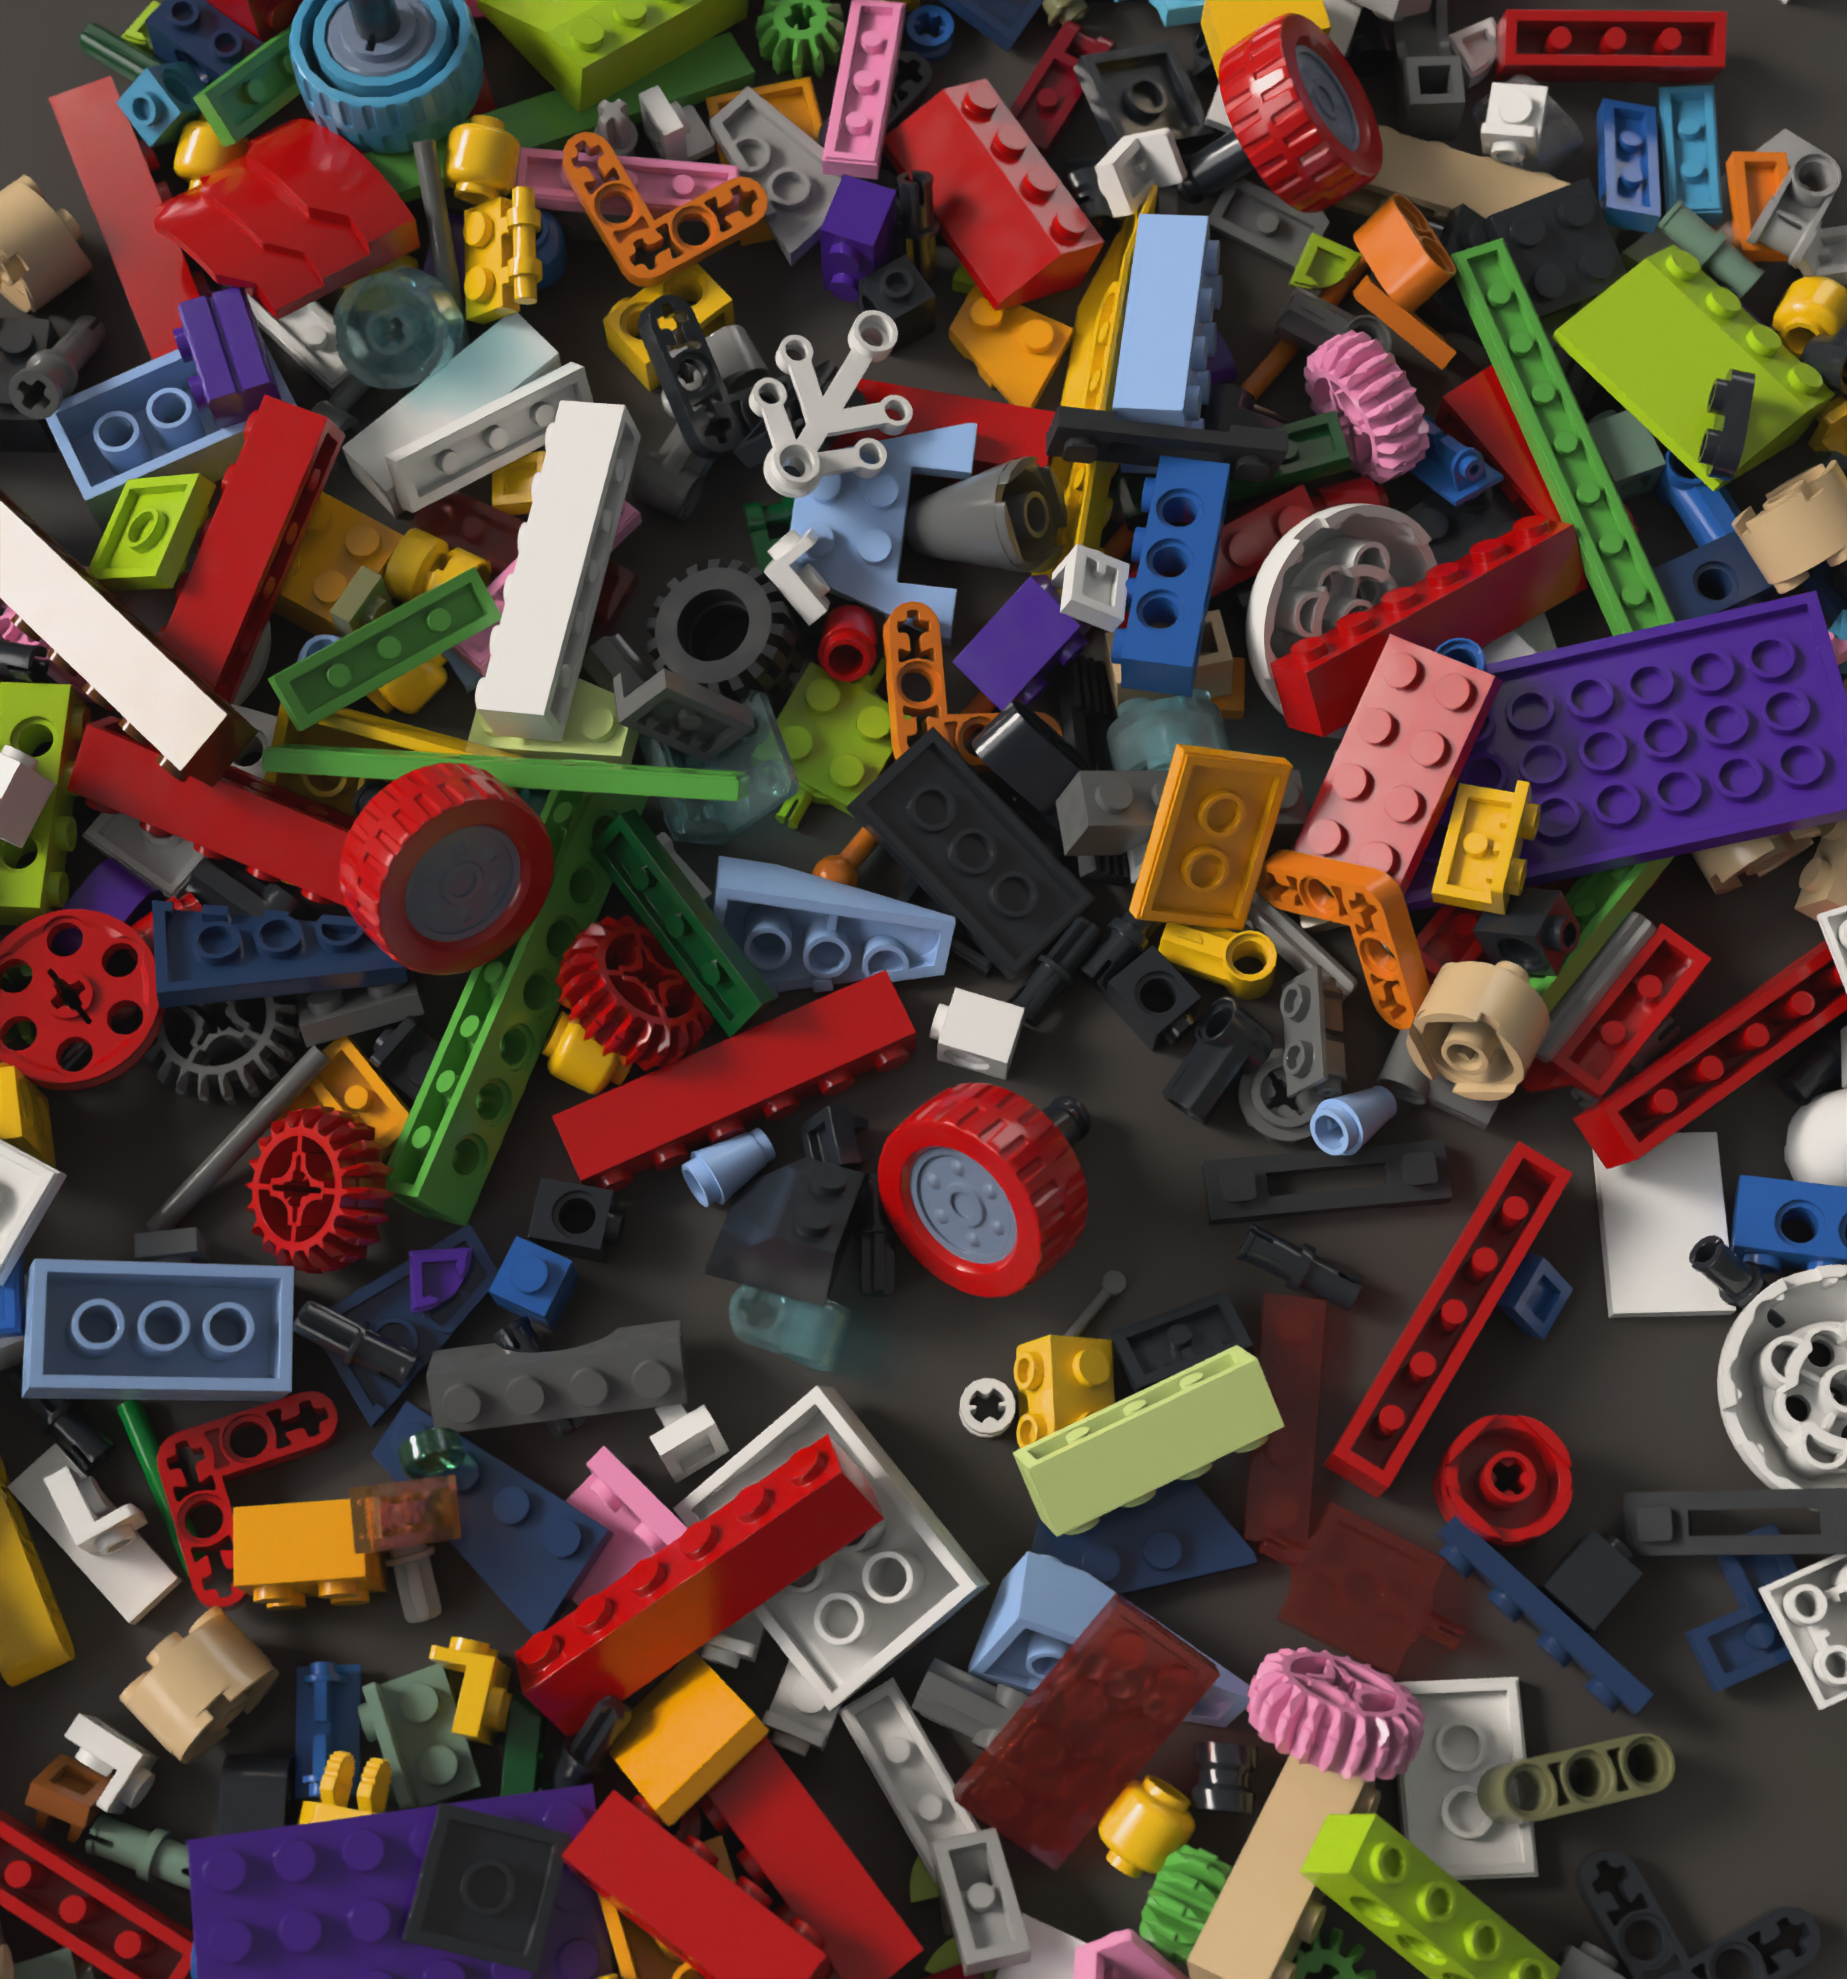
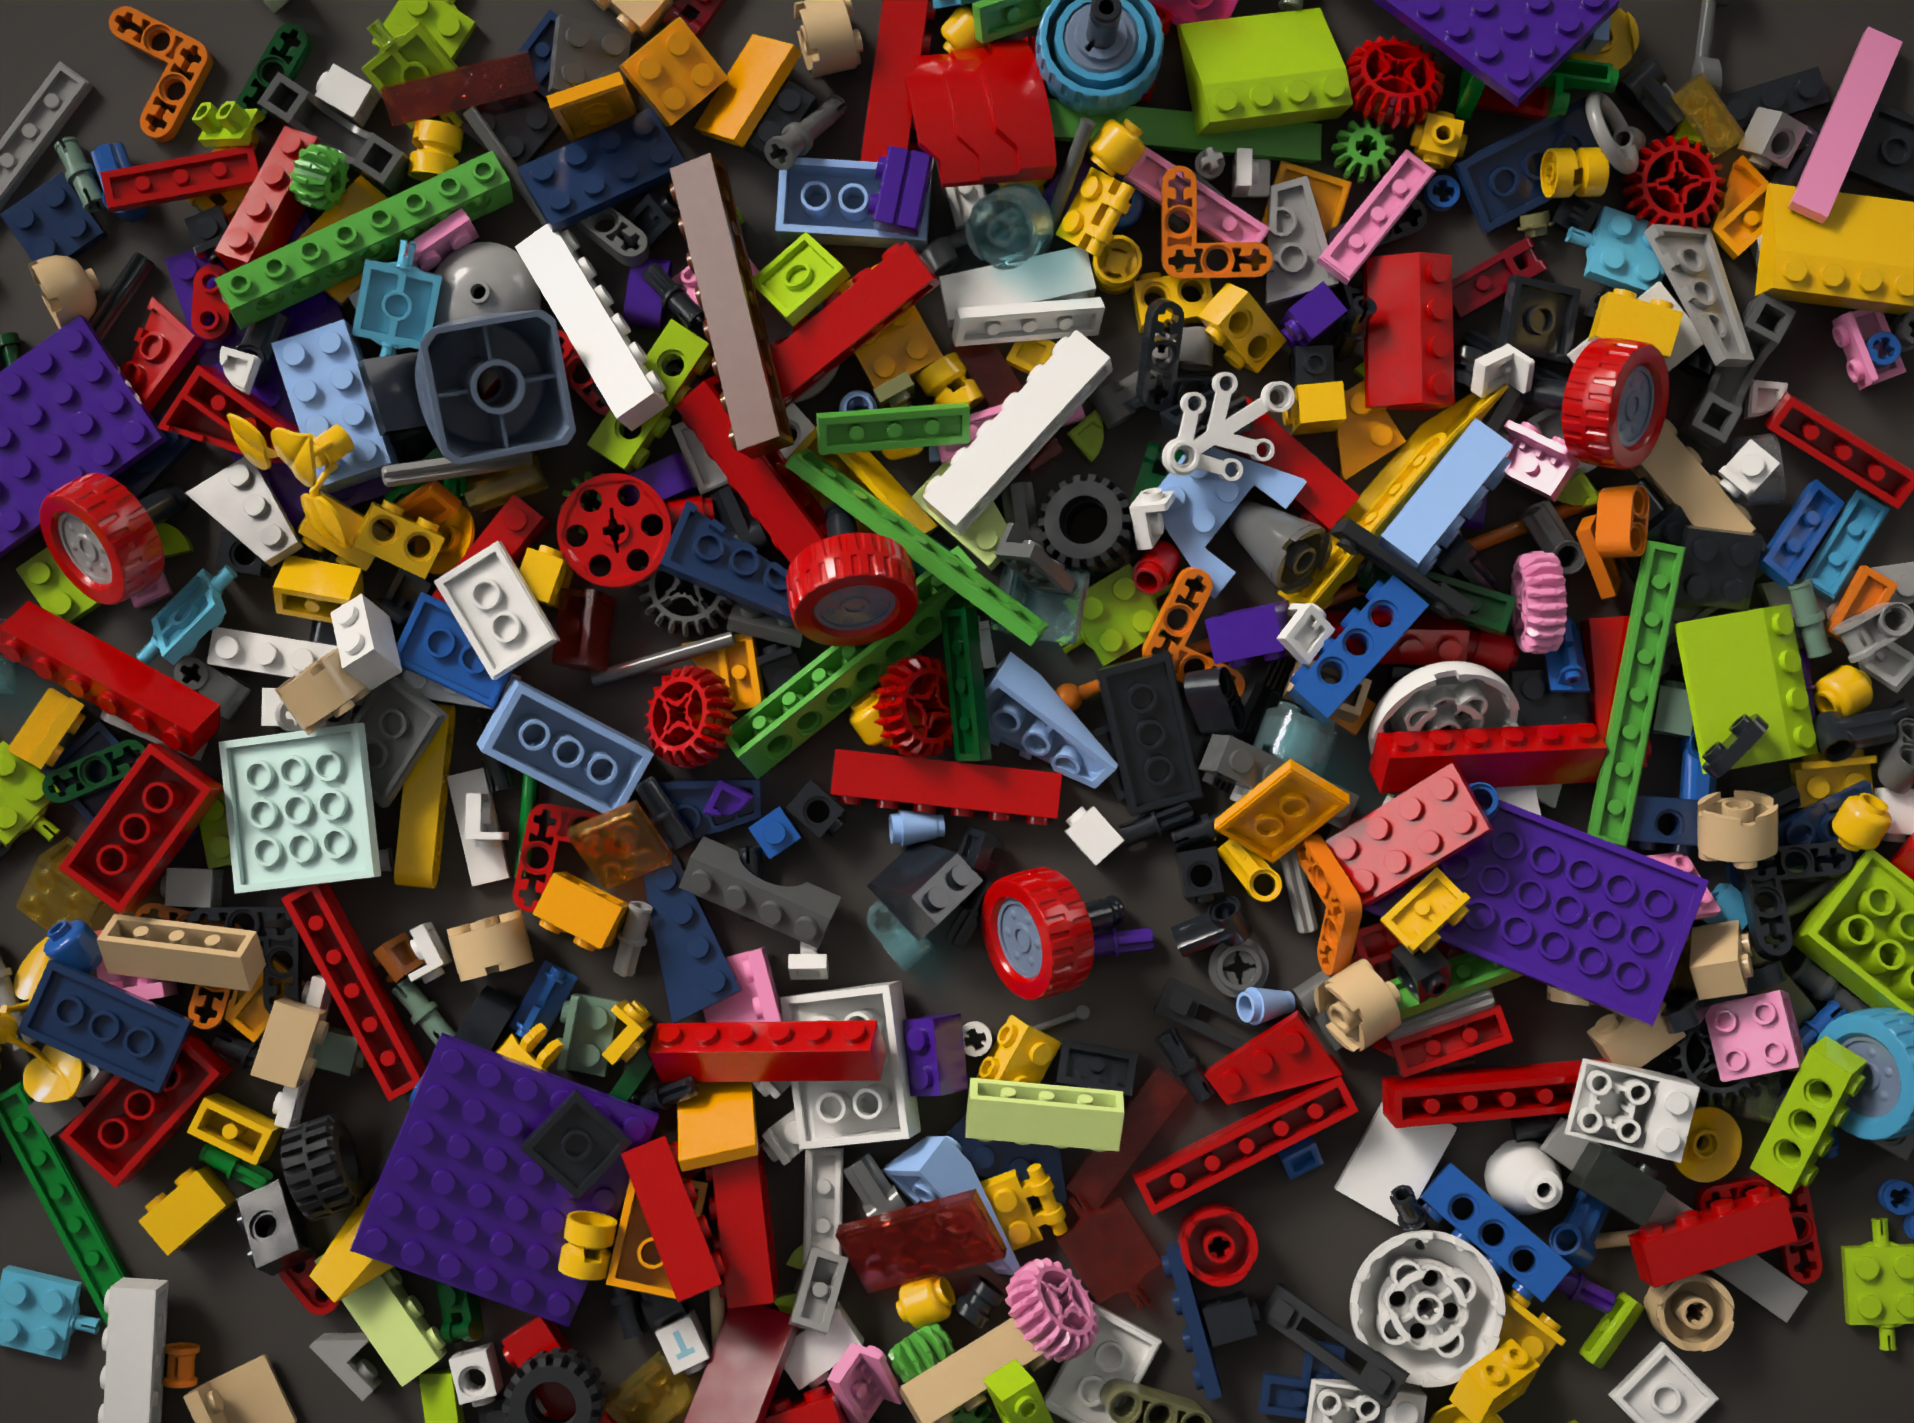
camera: 35 degrees right, 15 degrees up
(104, 1160) = (584, 630): none -> clear red brick
(173, 1246) = (595, 700): dark grey plate -> none
(316, 1426) = (620, 845): none -> clear orange plate
(404, 1513) = (639, 925): clear orange plate -> none
(431, 1453) = (670, 897): clear green tile -> none
(570, 314) = (1117, 265): none -> yellow wheel
(660, 545) = (1088, 436): none -> lime tile
(775, 296) = (1241, 328): none -> yellow brick
(934, 338) = (1316, 408): none -> yellow brick
(943, 1455) = (935, 1054): none -> dark purple brick
(1114, 1149) = (1123, 941): none -> dark purple axle
(1188, 1609) = (1013, 1210): none -> yellow plate
(1259, 250) = (1538, 461): none -> bright pink bracket
(1310, 1011) = (1278, 932): dark grey hinge -> none
(1415, 1186) = (1273, 1062): none -> red wing

